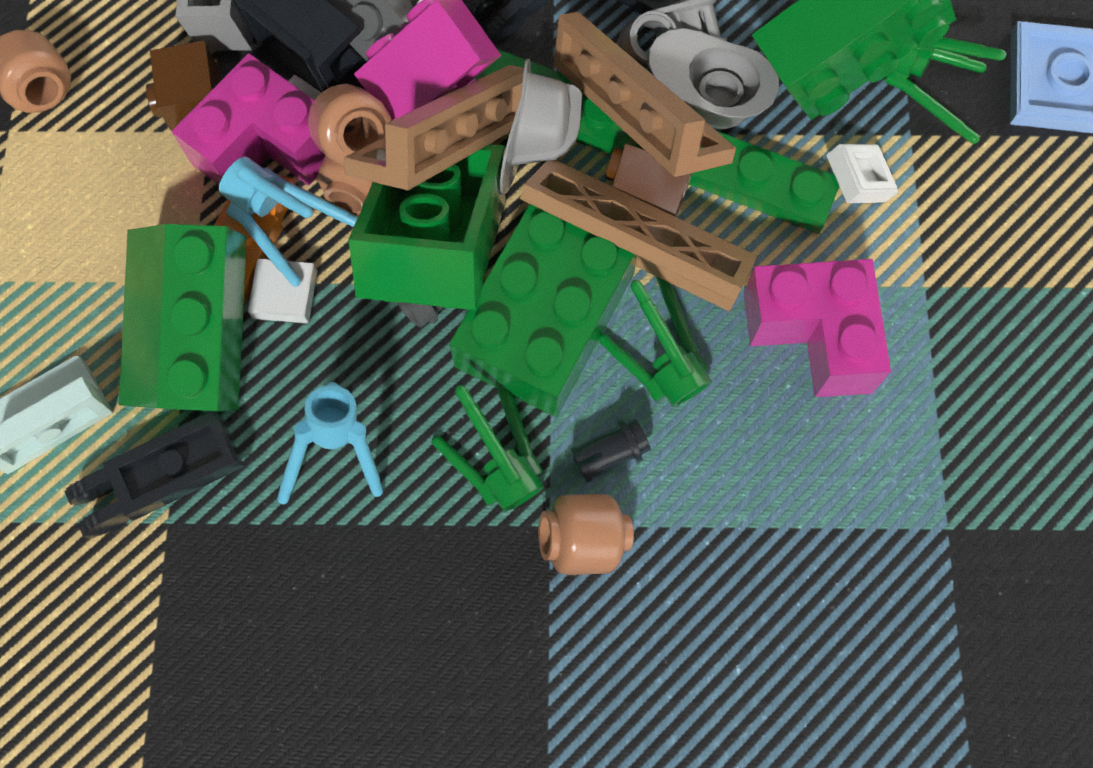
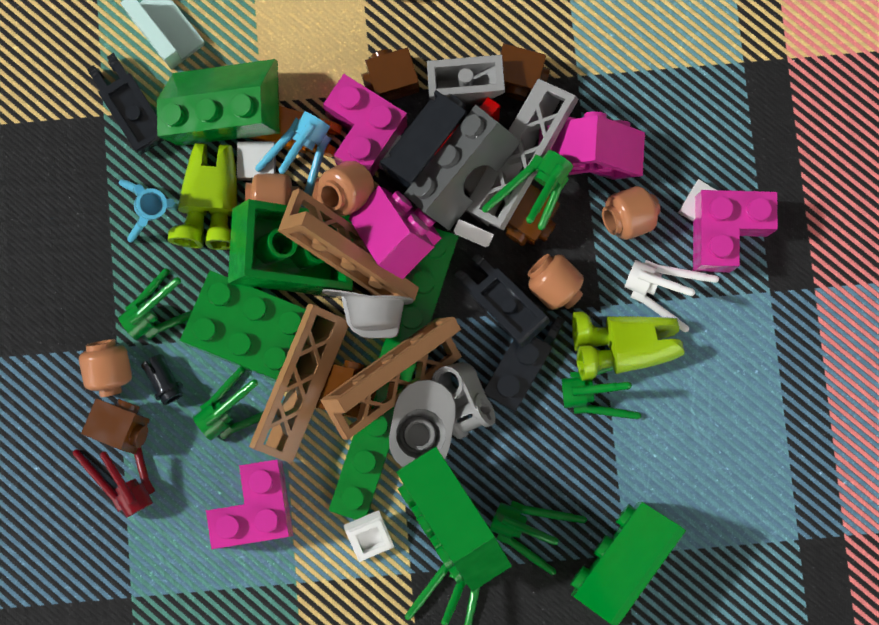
camera: 85 degrees right, 10 degrees up
(323, 351) = (206, 190): none -> lime piece
(329, 263) = (270, 188): none -> nougat head
(682, 516) = (117, 425): none -> reddish brown brick
(788, 507) = (130, 495): none -> dark red plant

